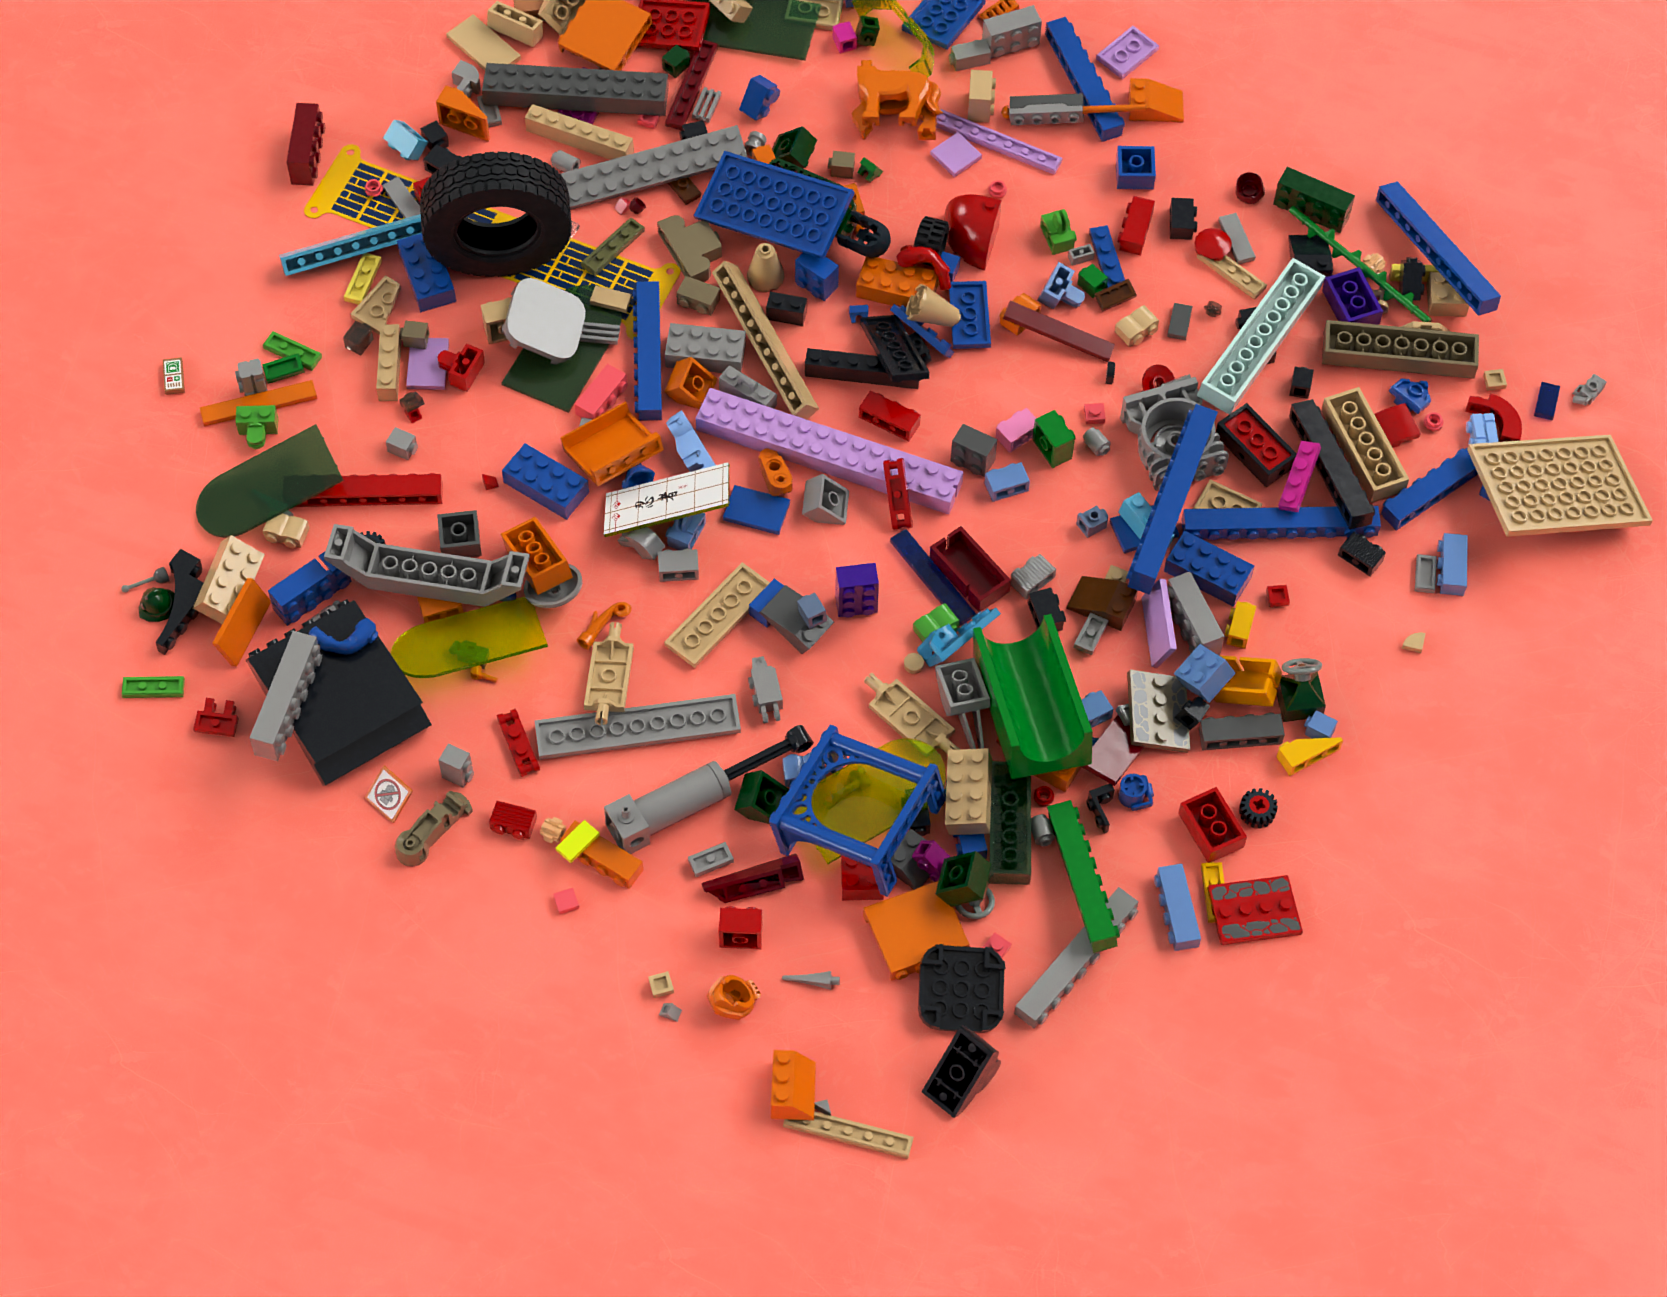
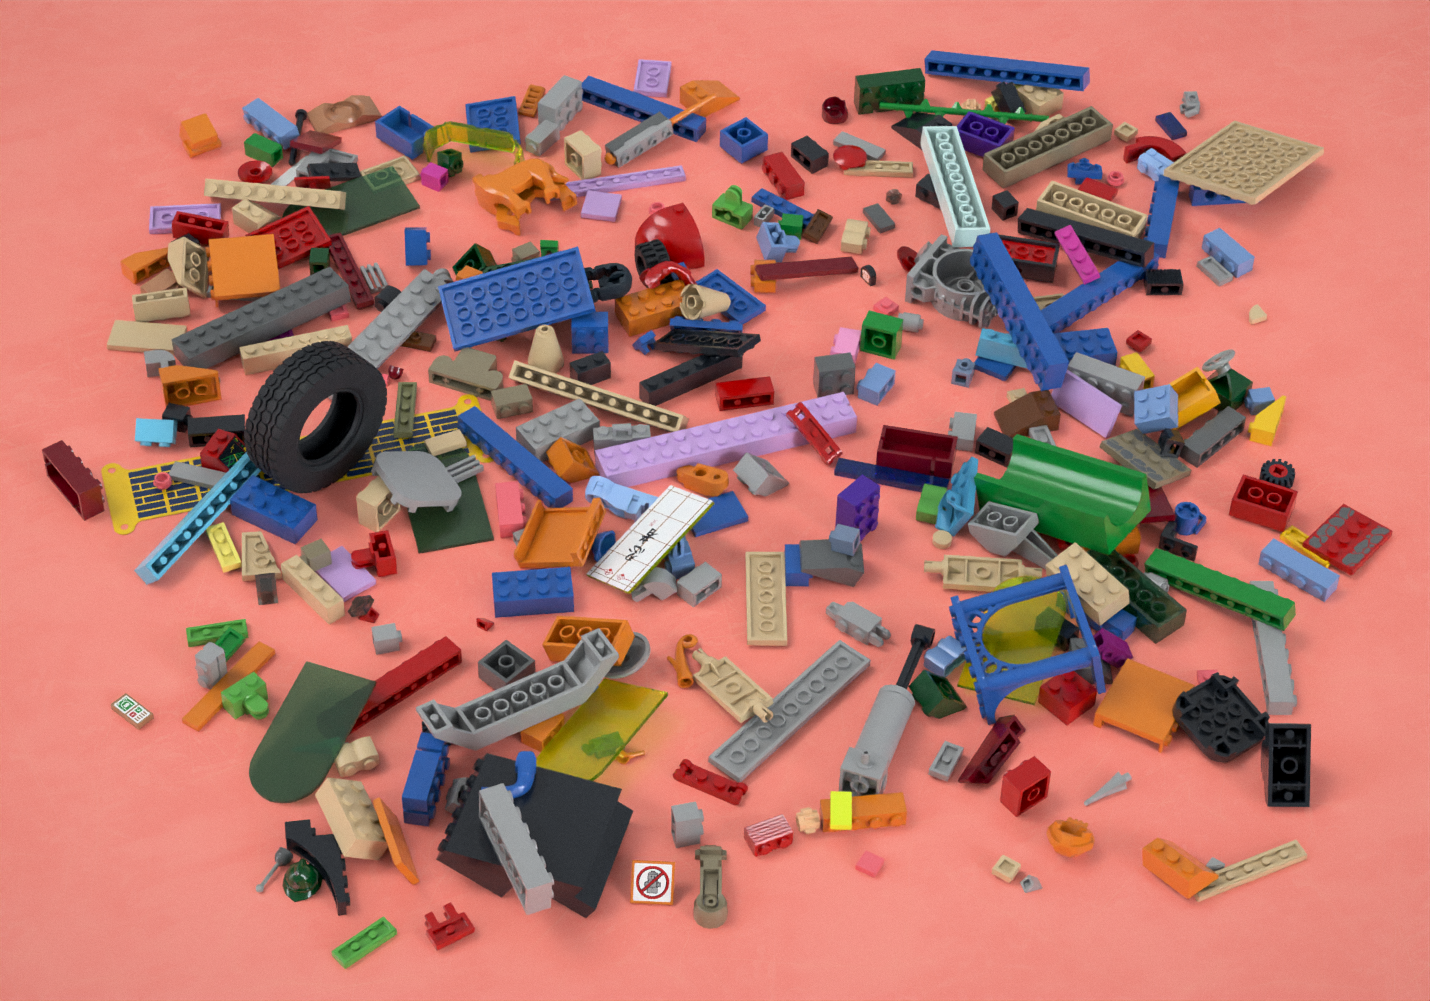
camera: 40 degrees left, 15 degrees down
(964, 881) = (1152, 642): dark green piece -> none

